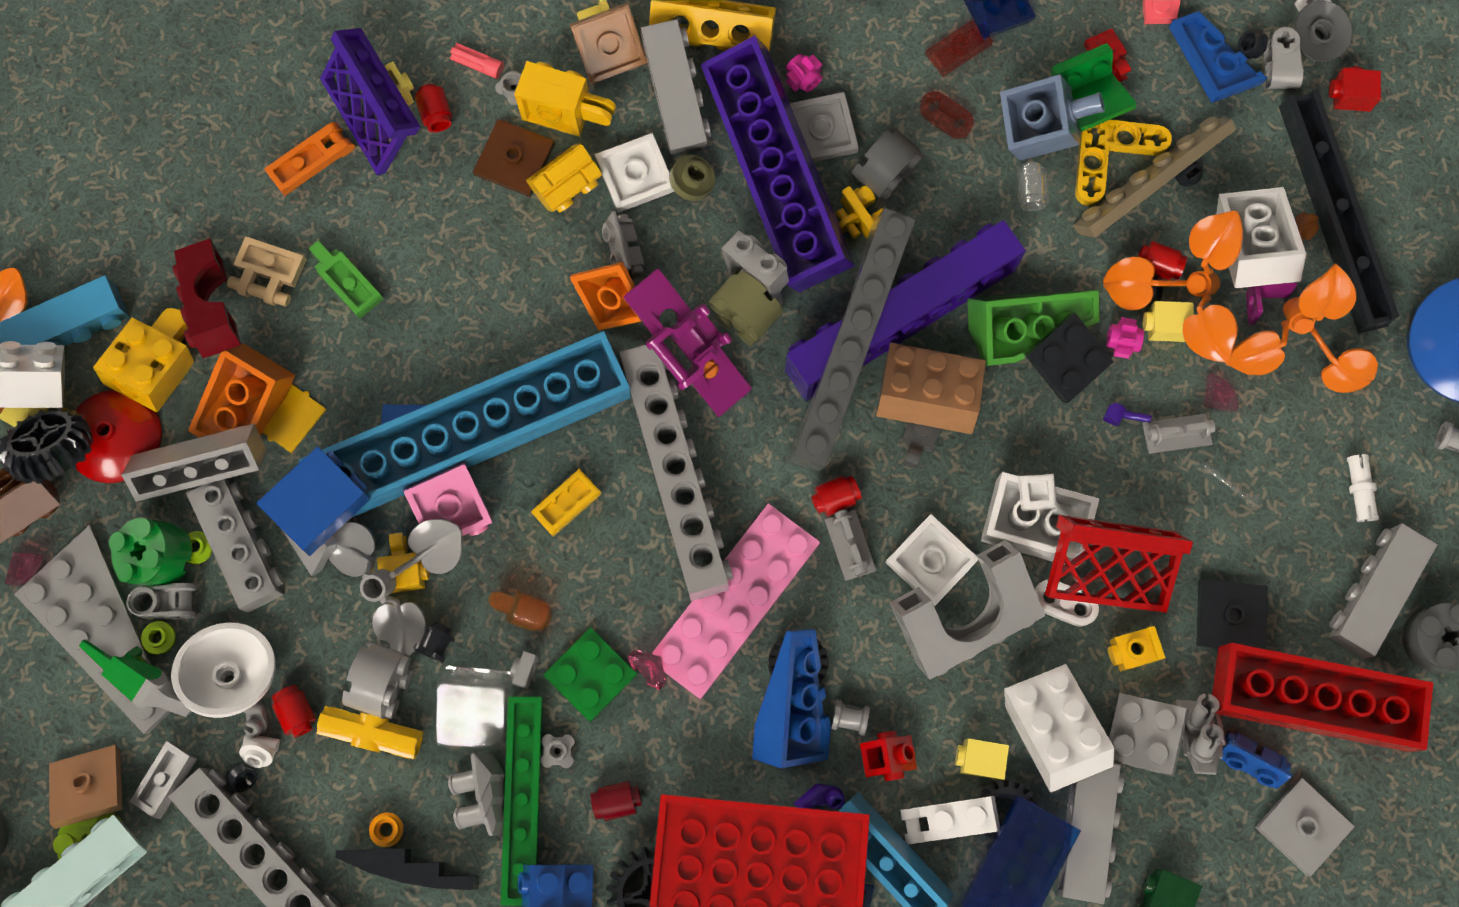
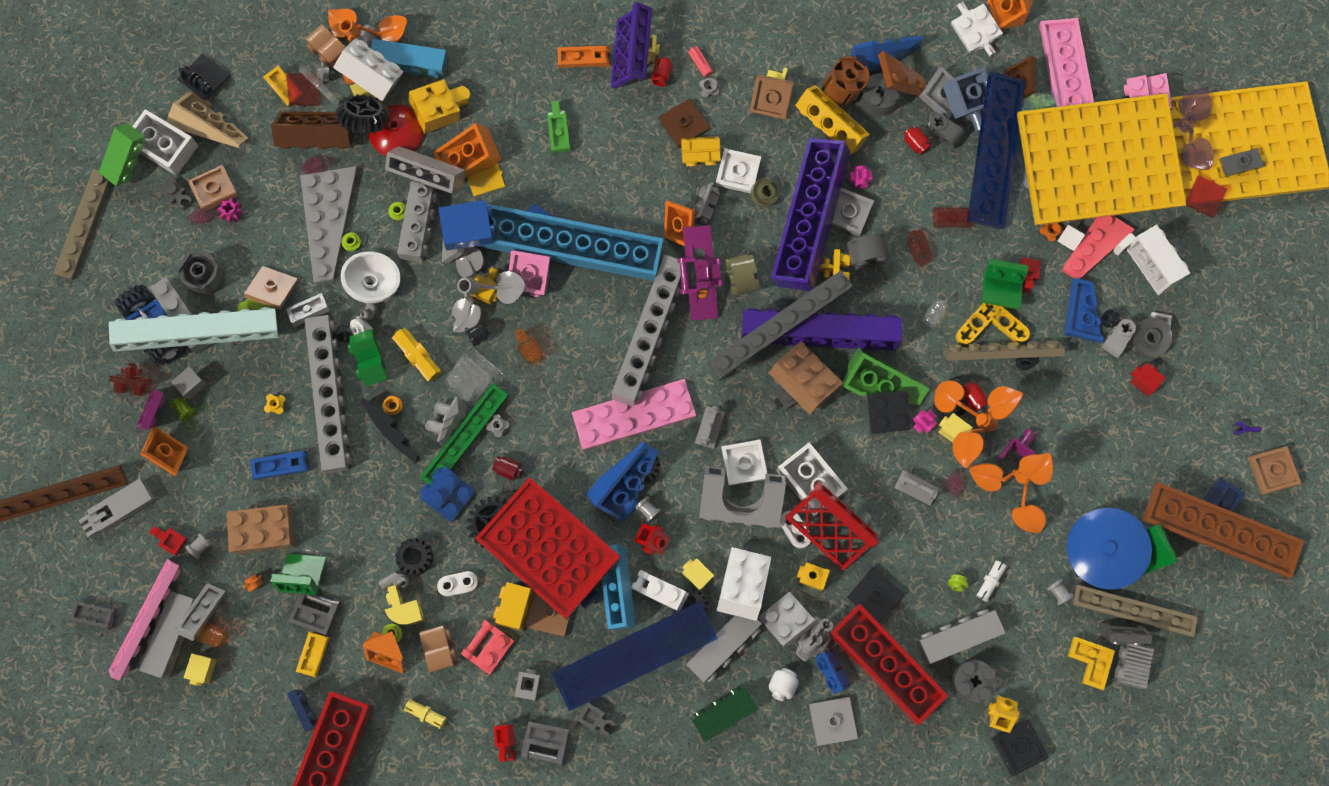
camera: 35 degrees right, 0 degrees up
(137, 680) = (328, 254): green animal -> none
(150, 552) = (375, 198): green brick -> none
(169, 601) = (367, 228): light grey piece -> none
(209, 324) = (490, 79): dark red arch -> none
(268, 262) = (528, 96): tan plate -> none
(293, 711) = (388, 319): red brick -> none
(294, 780) = (367, 353): none -> green brick
(376, 680) = (437, 332): light grey brick -> none
(524, 669) = (509, 375): light grey plate -> none
(559, 99) = (725, 108): yellow brick -> none
(566, 502) = (586, 310): yellow plate -> none
(590, 675) = (539, 401): green plate -> none
(649, 666) = (569, 417): clear pink tile -> none
(674, 86) = (787, 140): light grey brick -> none
(747, 255) = (765, 264): light grey plate -> none
(822, 795) = (607, 536): dark purple arm -> none
(836, 495) = (720, 398): red brick -> none
(1037, 492) = (818, 463): white tile -> none
(1044, 116) = (966, 281): sand blue brick -> none
(1117, 411) = (892, 455): dark purple hand -> none
(1207, 826) = (783, 684): none -> white head
(1271, 240) = (1031, 418): white brick -> none
(1307, 225) = (1063, 430): dark orange plate -> none
(1324, 521) = (958, 583): none -> lime plate
(1338, 209) = (1087, 434): black tile -> none

